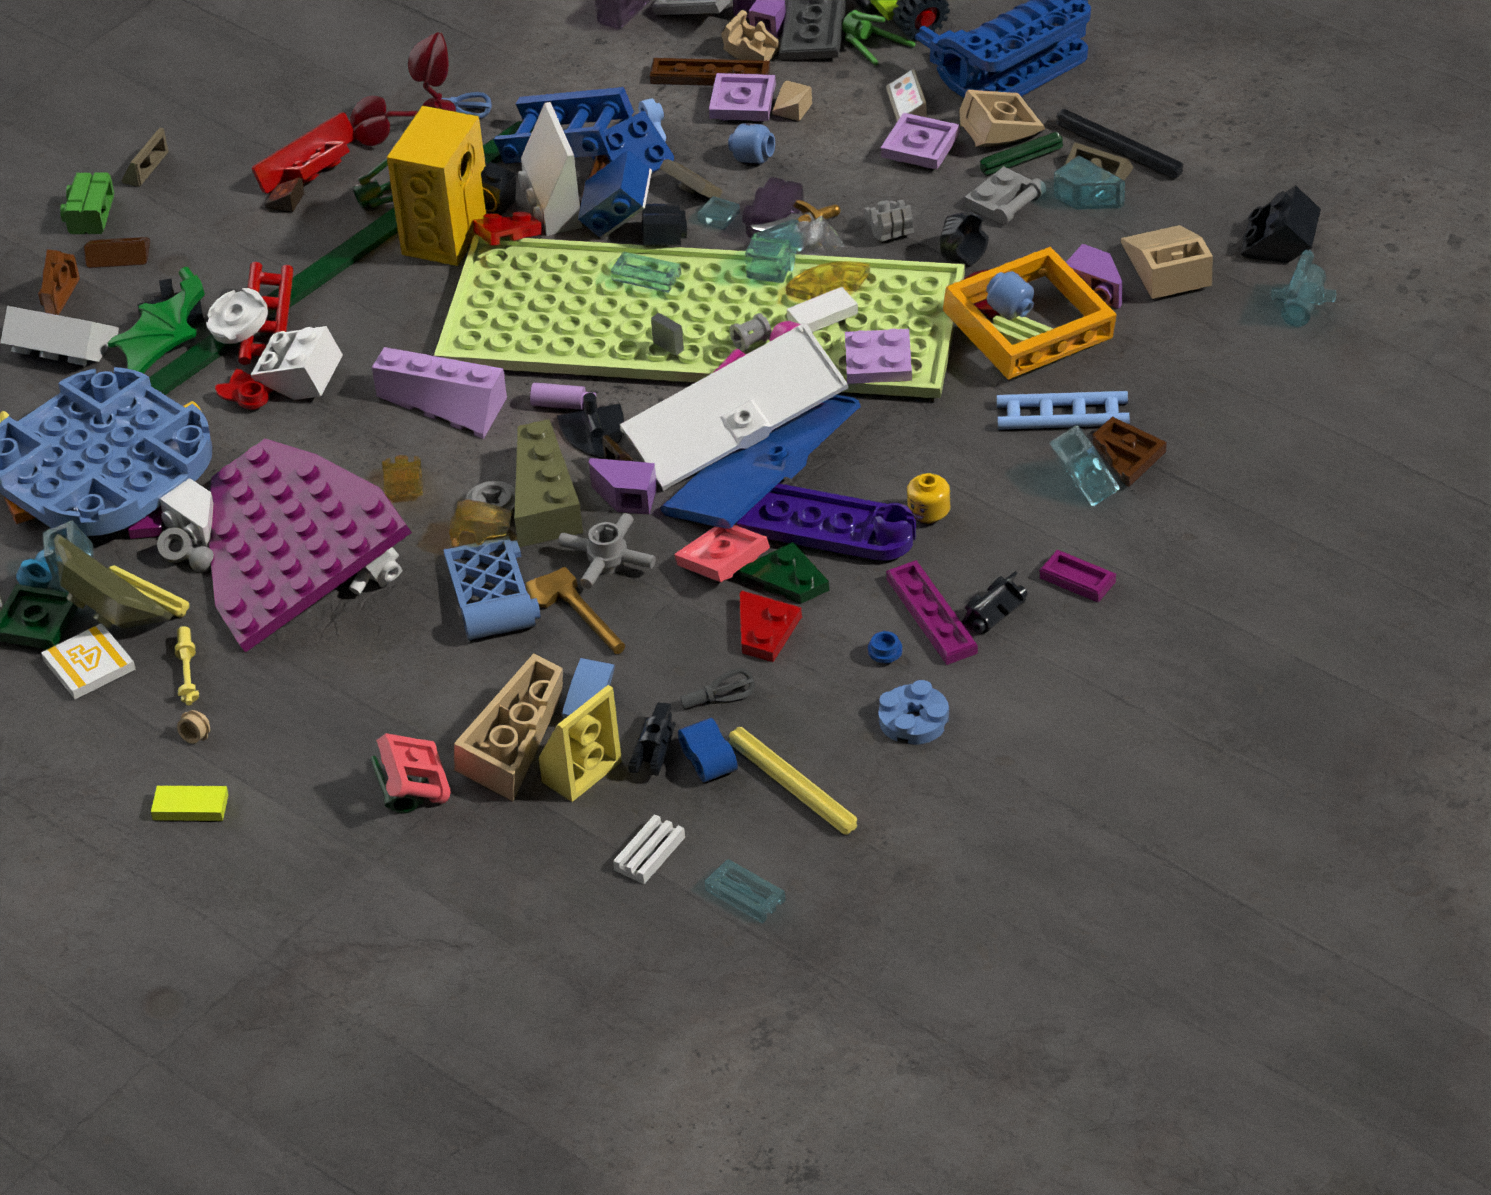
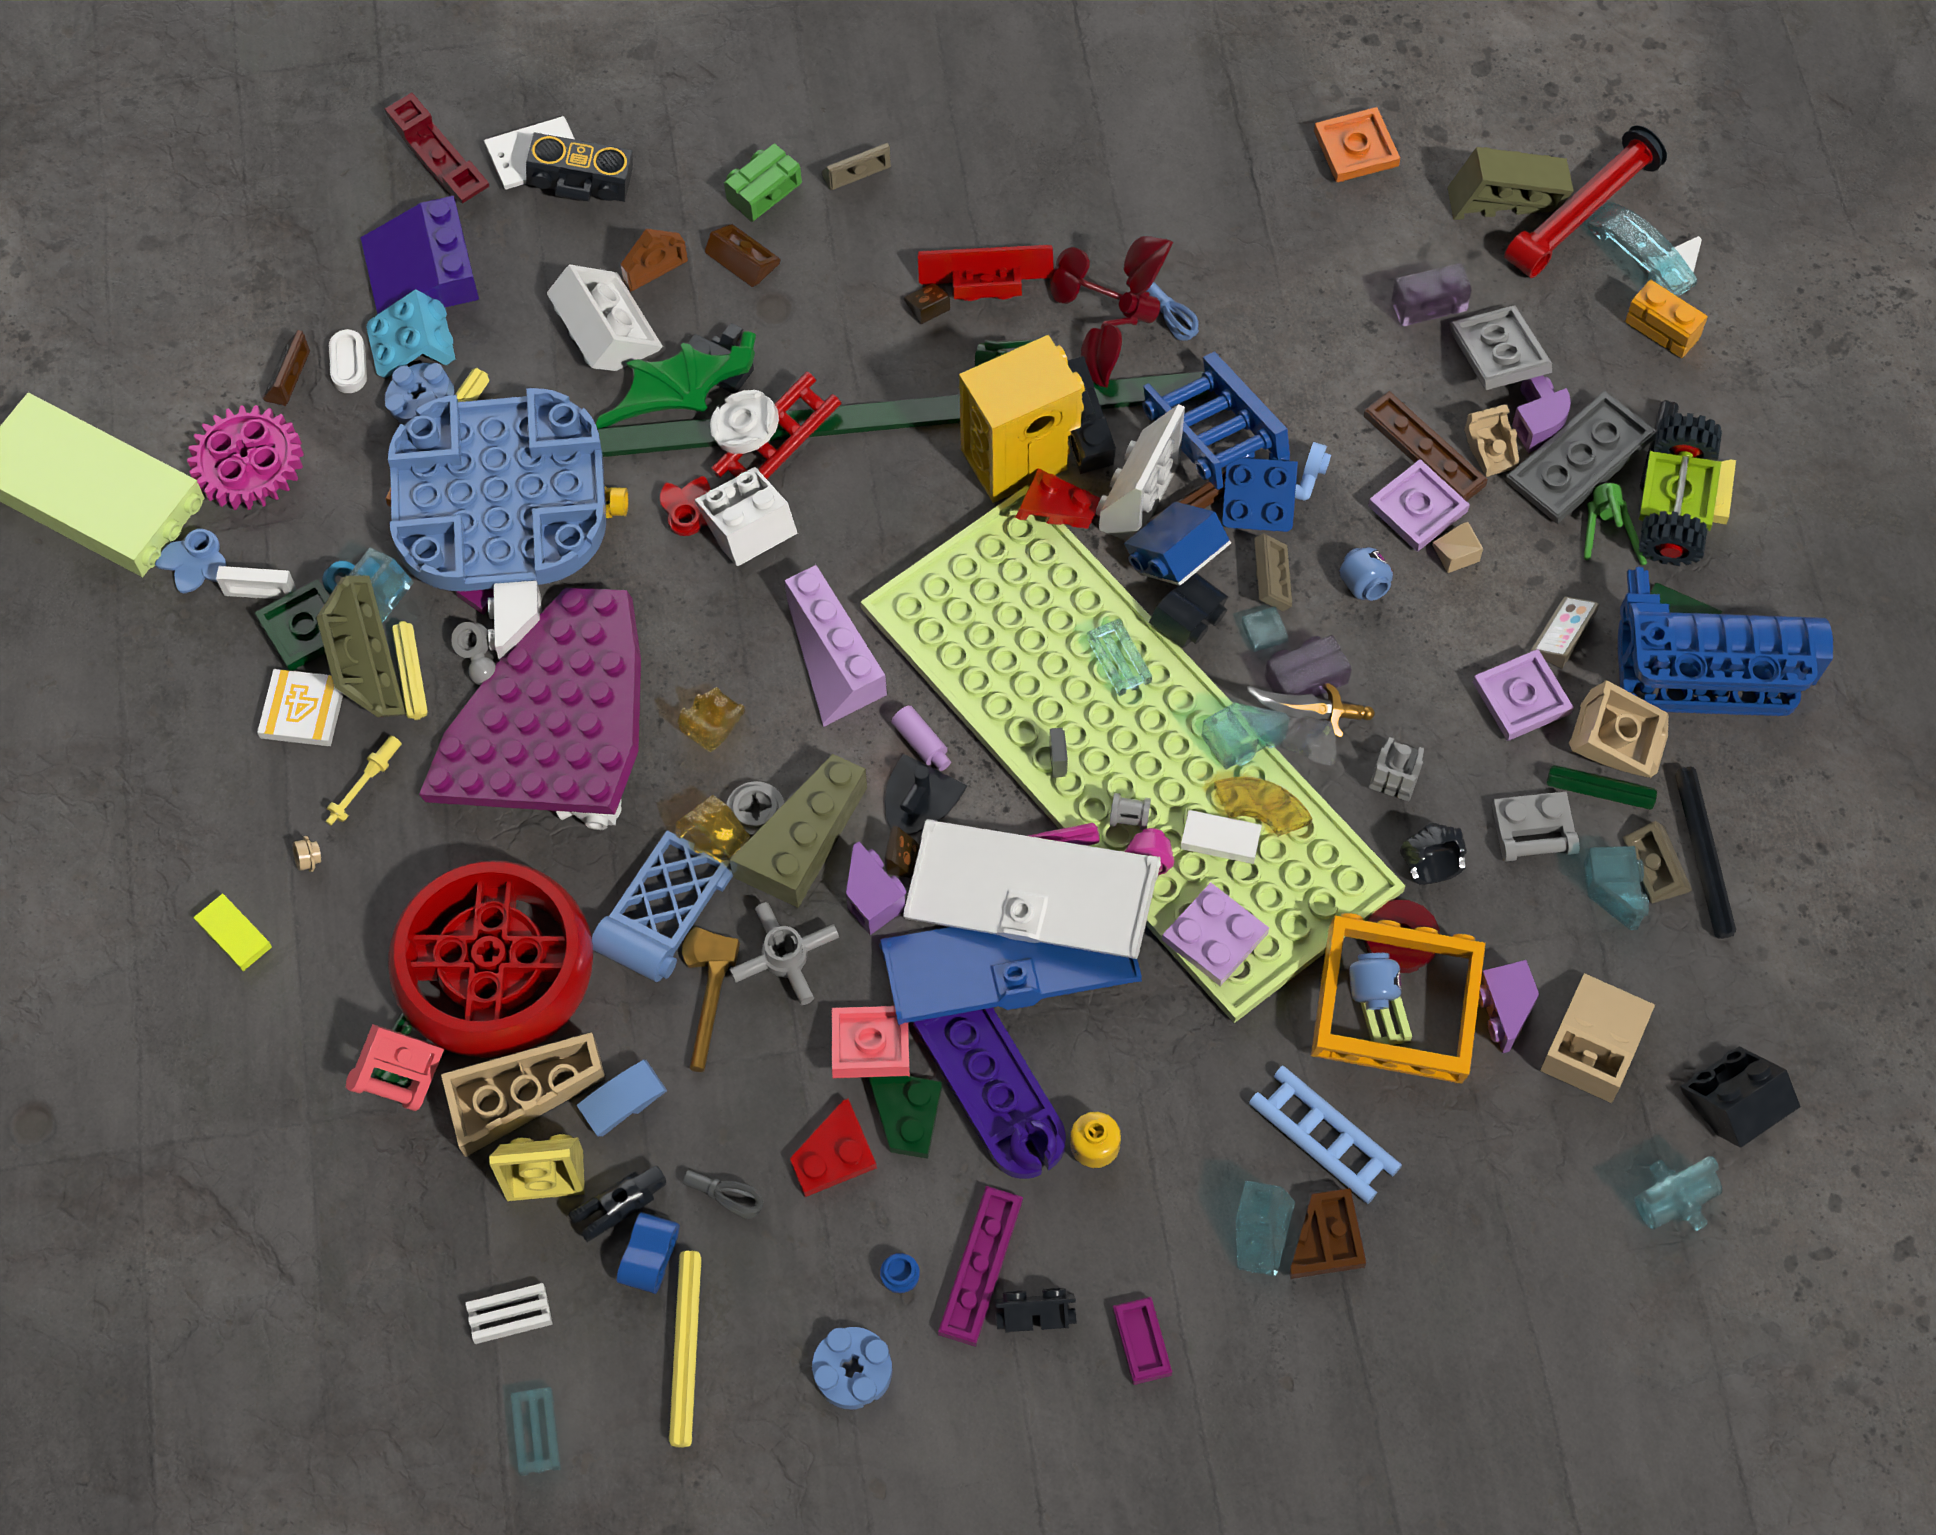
camera: 40 degrees right, 20 degrees up
(406, 674) = (422, 956): none -> red wheel

